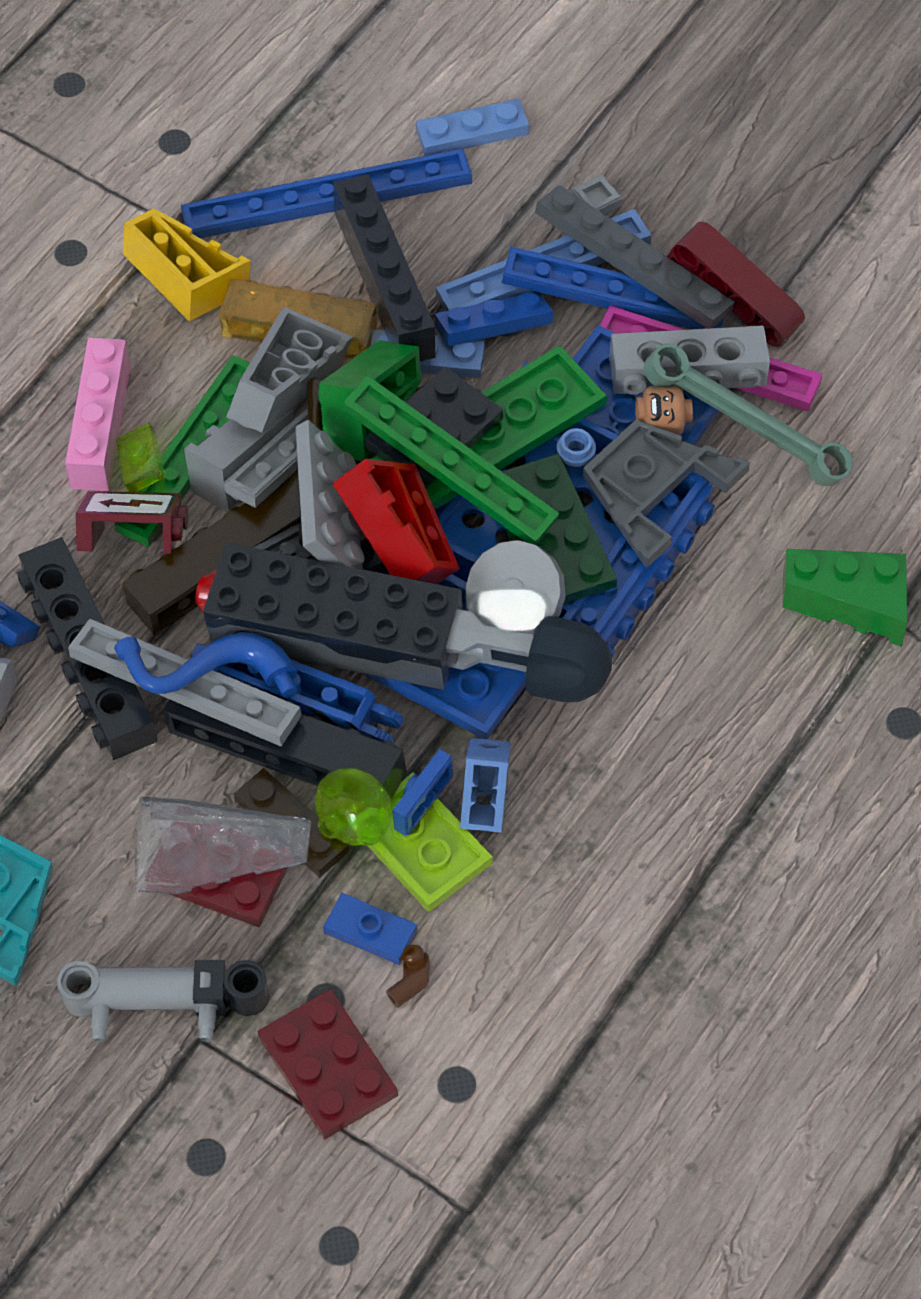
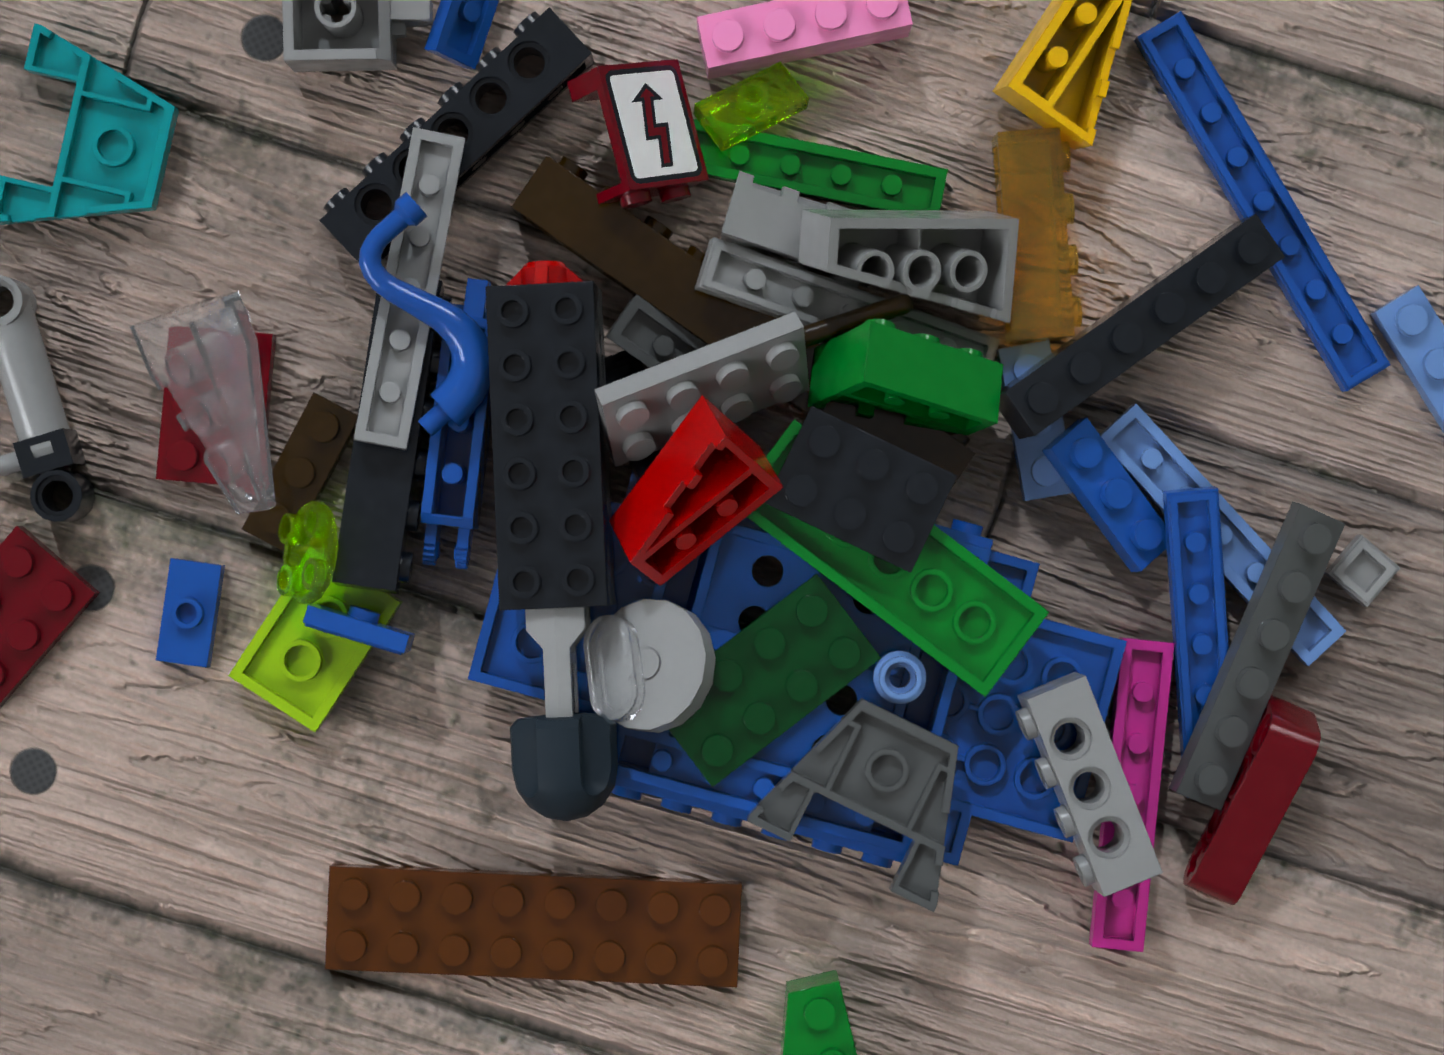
camera: 70 degrees right, 30 degrees up
(415, 975) = (143, 684): reddish brown arm -> none
(450, 461) = (792, 532): green plate -> none
(485, 775) = (402, 698): medium blue torso -> none
(664, 408) = (990, 774): nougat head -> none
(688, 760) = (533, 925): none -> reddish brown plate
(748, 415) = (1024, 881): sand green piece -> none

